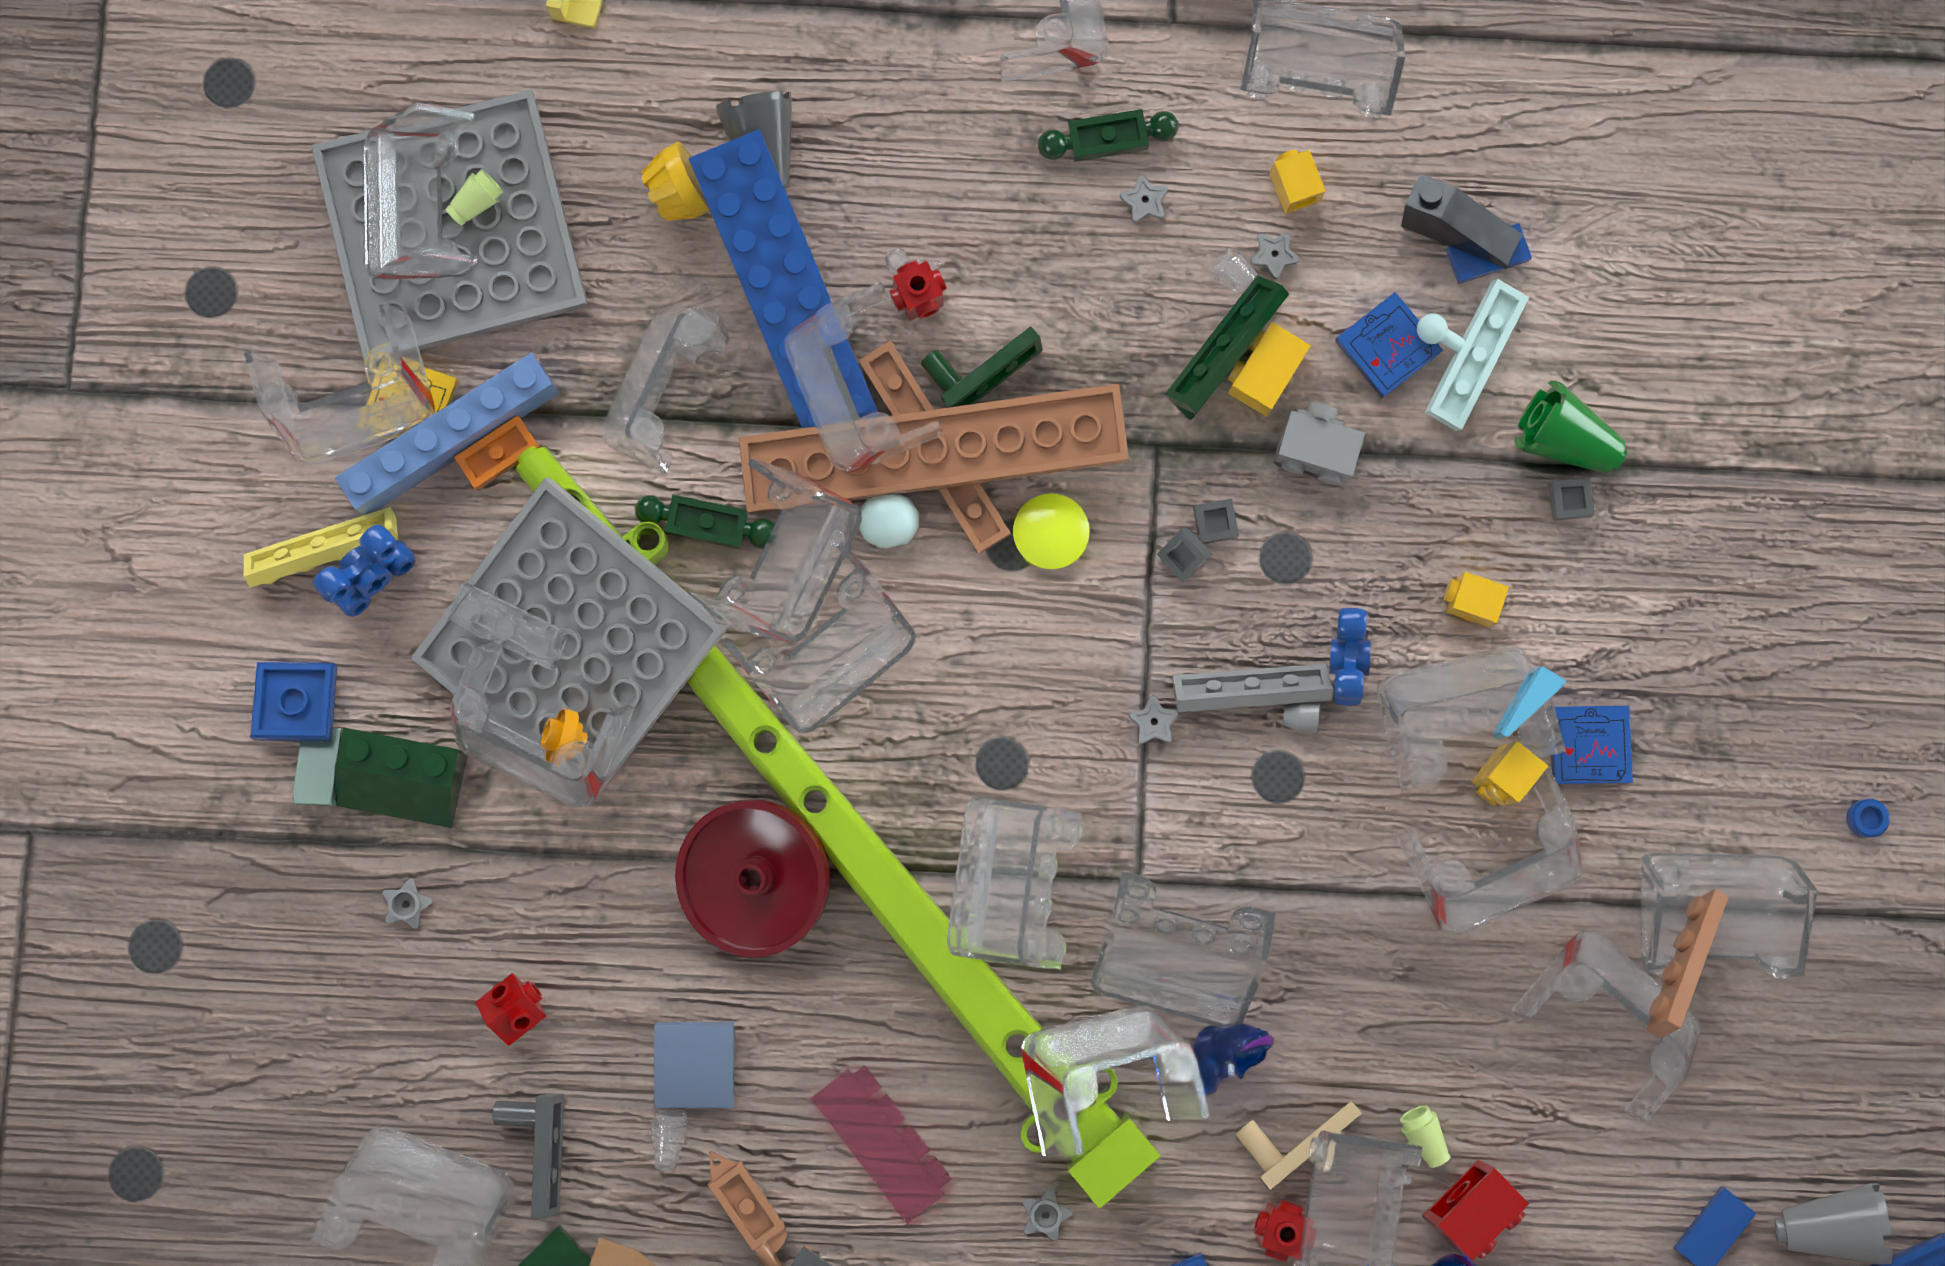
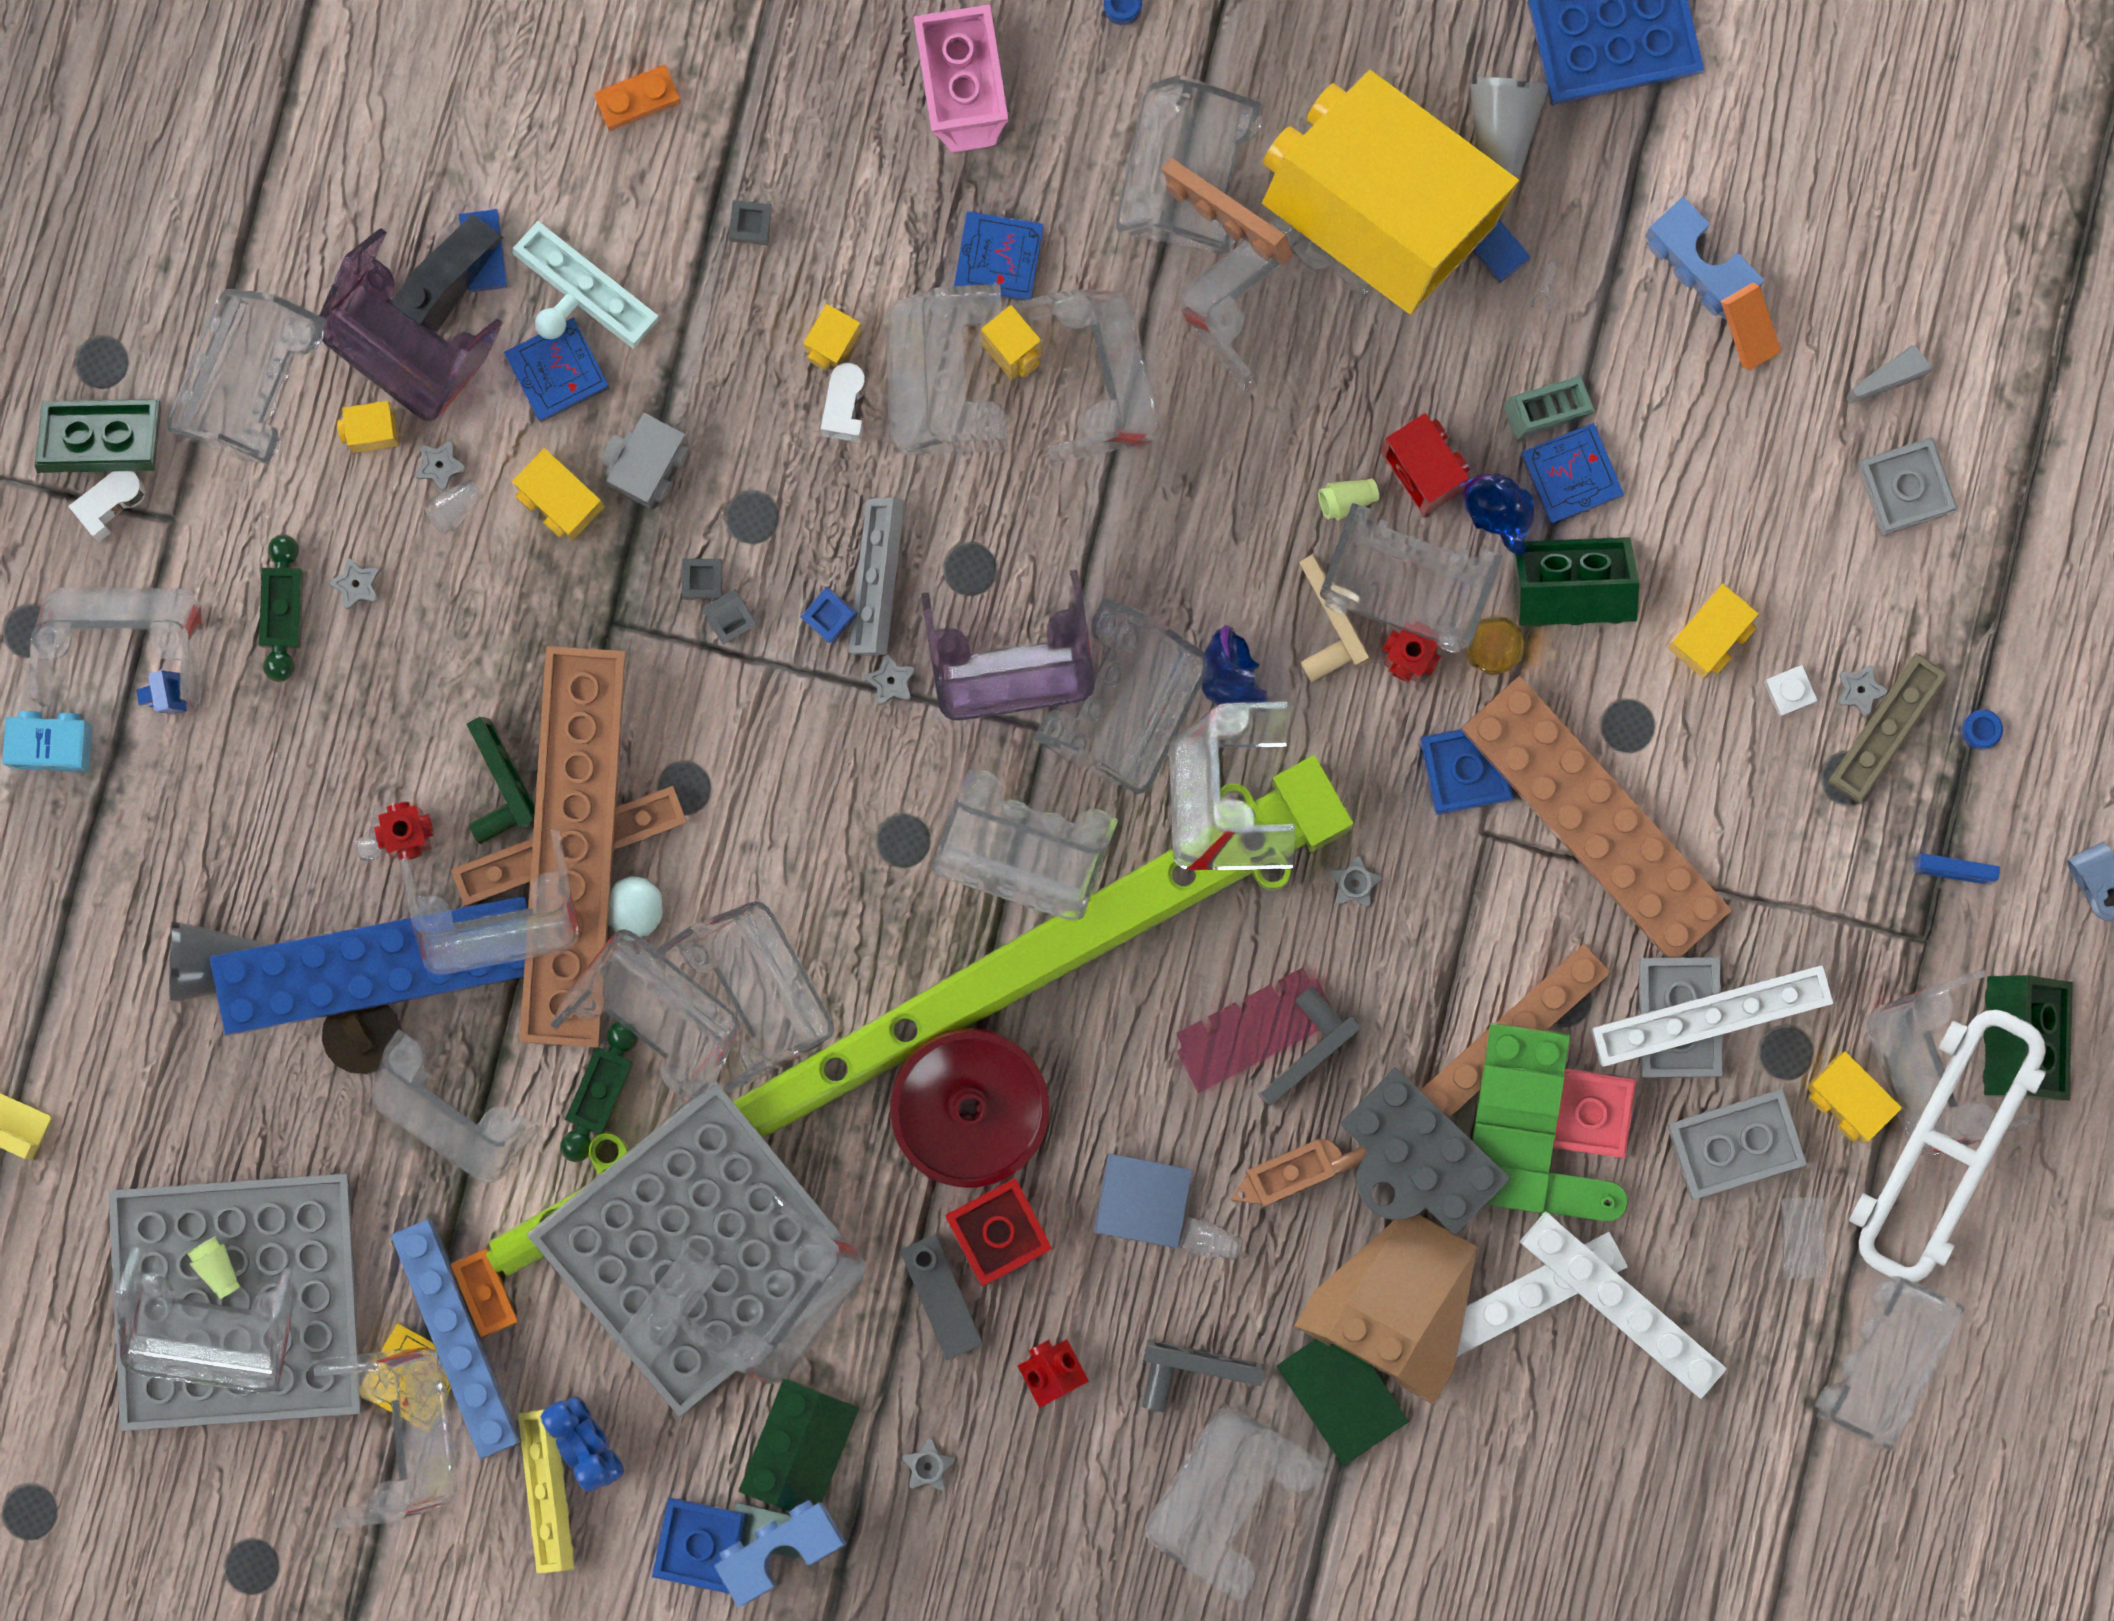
camera: 75 degrees left, 0 degrees up
(314, 802) = (747, 1568): none -> medium blue arch
(560, 731) = (787, 1270): light orange plate -> none
(569, 885) = (941, 1297): none -> dark grey piece
(636, 930) = (998, 1232): none -> red brick
(674, 184) = (243, 1057): yellow piece -> none
(716, 287) = (359, 1038): none -> dark brown tile
(891, 1224) = (1335, 1034): none -> dark grey piece
(1004, 41) = (162, 693): none -> blue tile
(1051, 531) = (678, 745): neon yellow dish -> none
(1181, 842) = (1013, 677): none -> clear purple windscreen
(1205, 649) = (829, 615): none -> blue plate
(1226, 345) = (526, 531): dark green panel -> none
(1302, 717) = (915, 533): light grey hose -> none
(1350, 656) = (865, 473): blue gear -> none
(1379, 180) = (392, 347): none -> clear purple windscreen
(1426, 621) = (844, 391): none -> white leg
(1534, 691) = (937, 304): medium azure slope -> none
(1568, 431) = (682, 211): green cone -> none
(1668, 368) = (637, 97): none -> orange plate
(1748, 1120) = (1386, 189): none -> yellow brick
(1761, 675) = (962, 77): none -> bright pink slope

